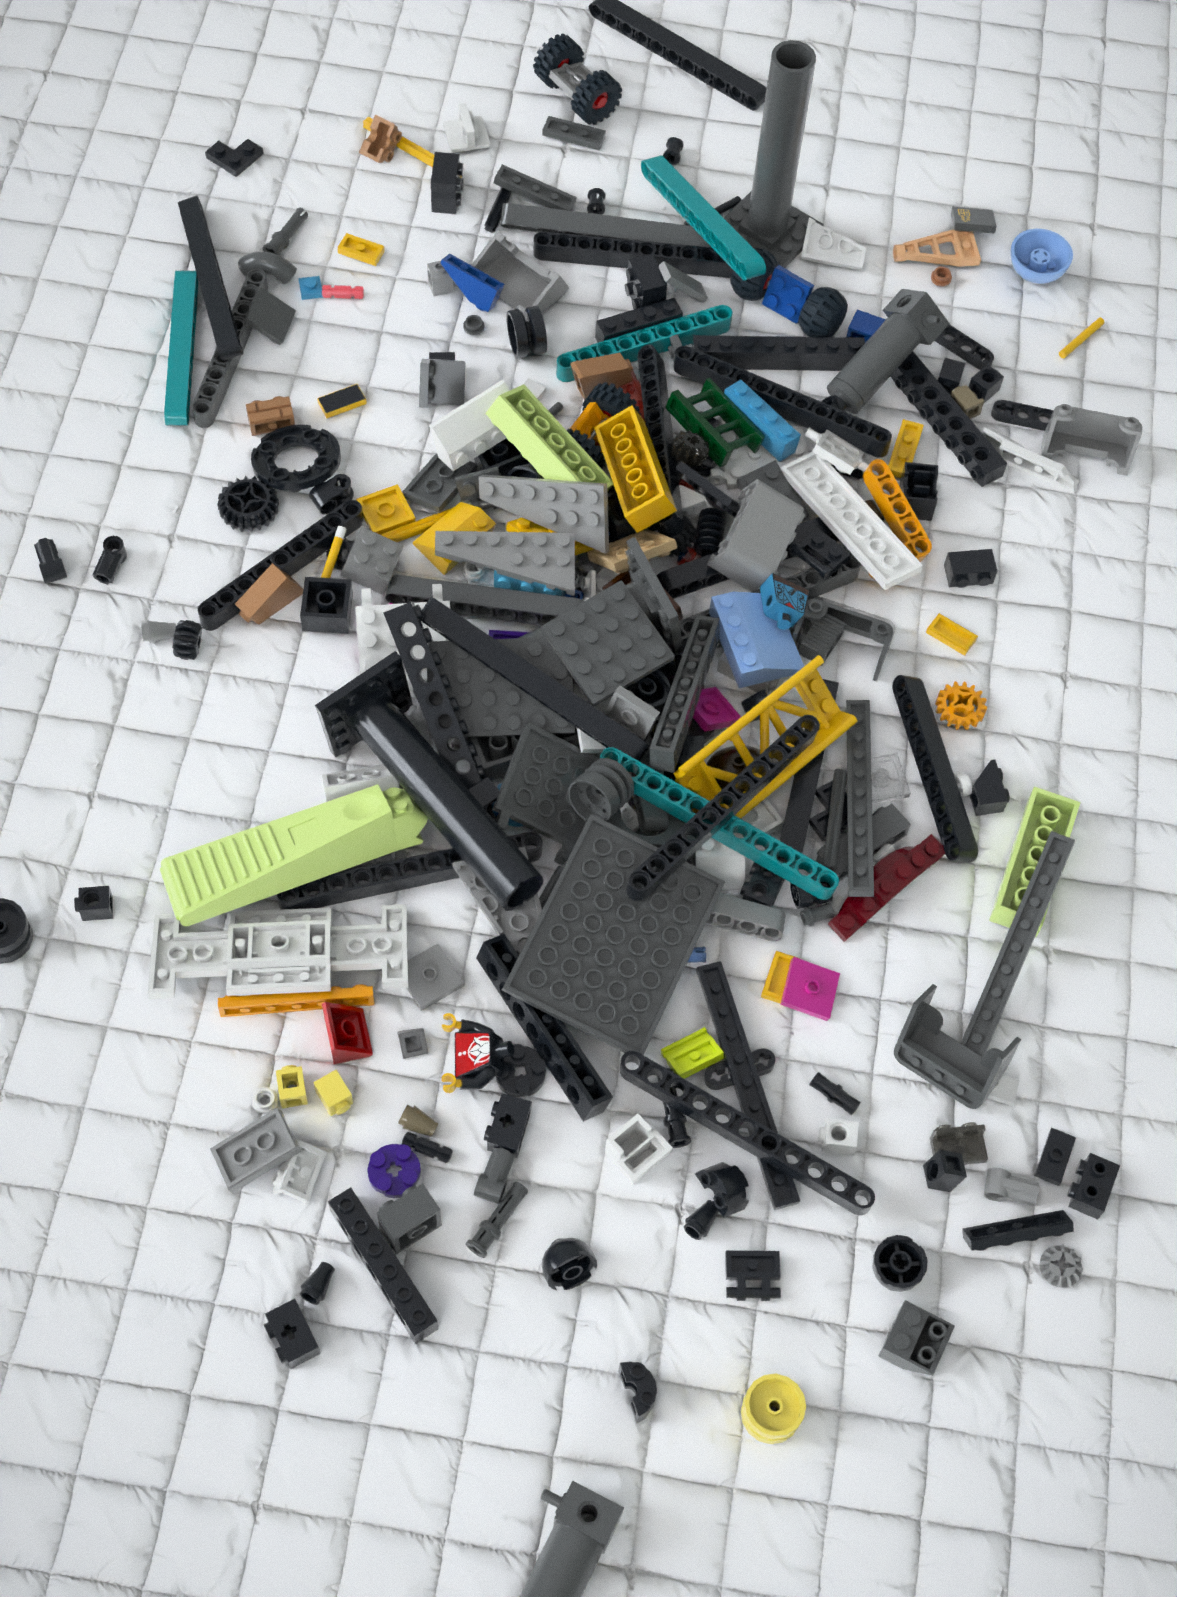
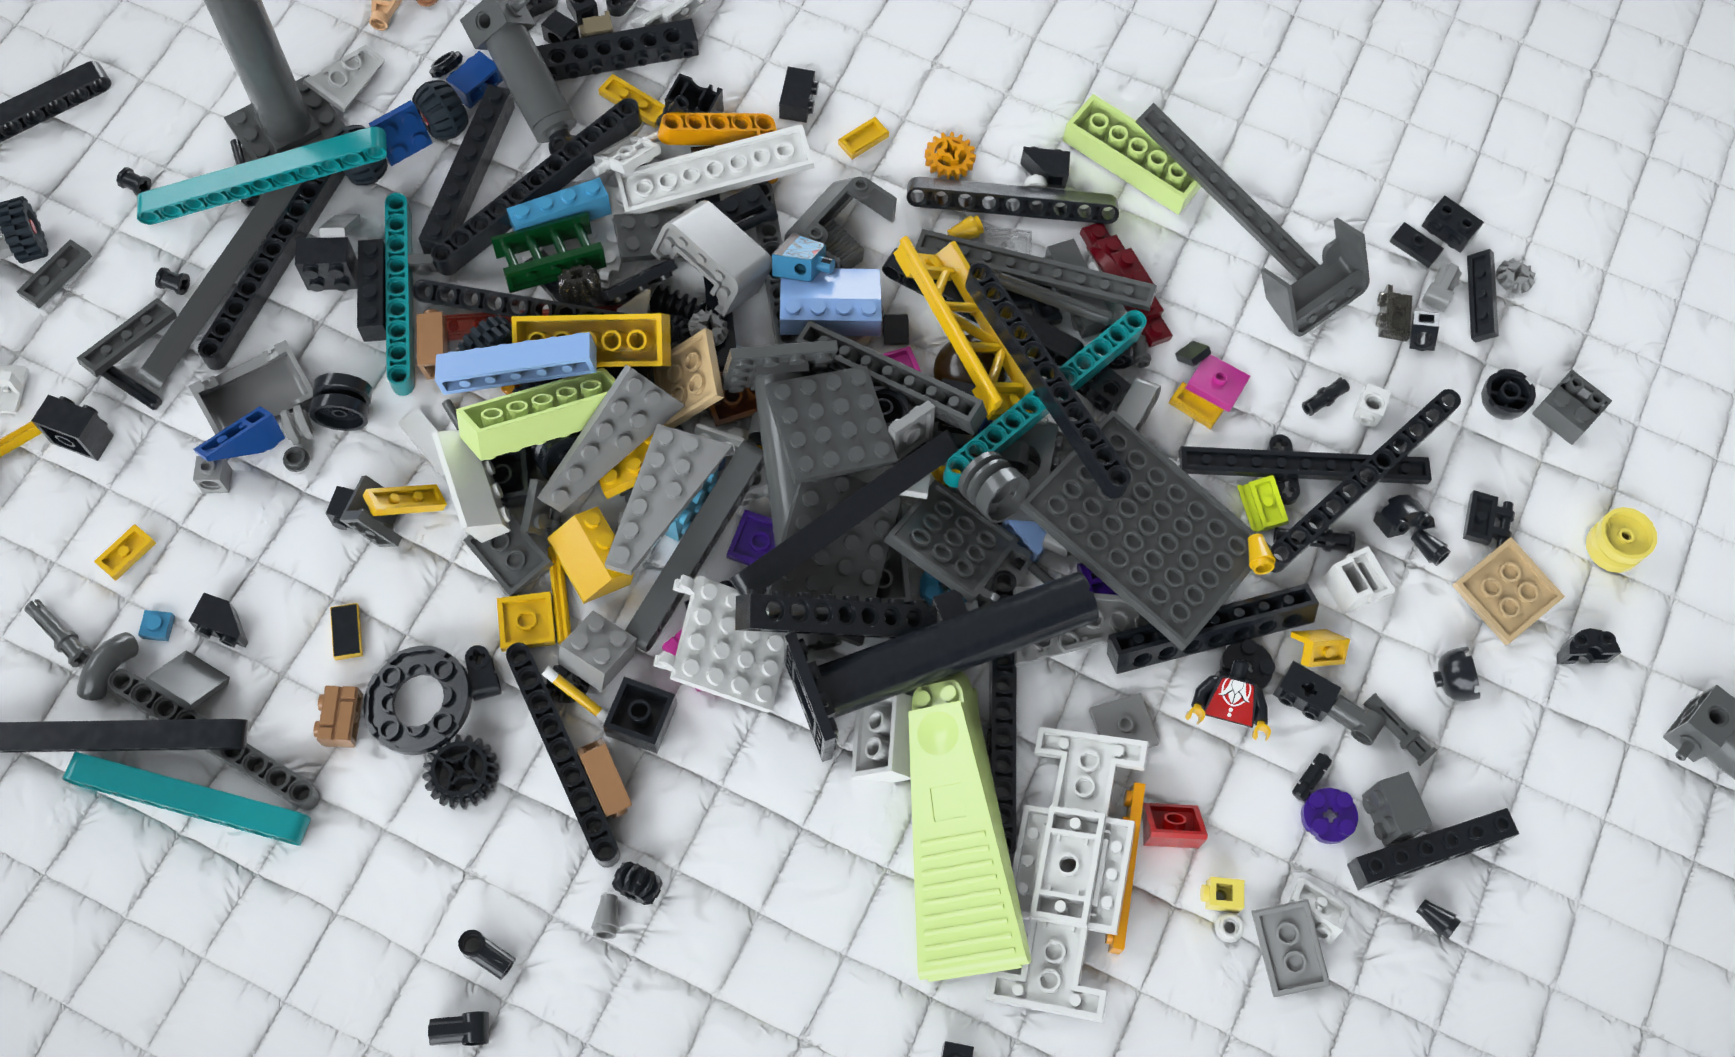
camera: 75 degrees left, 5 degrees up
(288, 1318) = (1502, 947): black brick -> none
(324, 319) = (218, 619): none -> black slope
(333, 1093) = (1239, 853): light yellow brick -> none
(343, 291) = (180, 589): coral axle -> none
(412, 1042) = (1193, 762): flat silver slope -> none
(417, 1121) = (1283, 779): dark tan cone -> none
(450, 386) = (404, 499): none -> yellow plate
(496, 313) = (296, 424): none -> light grey wheel
(556, 1127) = (1322, 647): none -> yellow panel
(589, 420) = (516, 363): none -> light blue brick
(620, 1042) = (1260, 555): none -> yellow cone
(677, 1301) = (1508, 591): none -> tan plate
(684, 562) = (719, 326): none -> light grey gear
(833, 960) = (1193, 353): none -> black tile
(873, 306) = (445, 64): none -> black gear
(887, 738) = (968, 228): none -> yellow cone
(898, 469) = (674, 107): none -> black pin

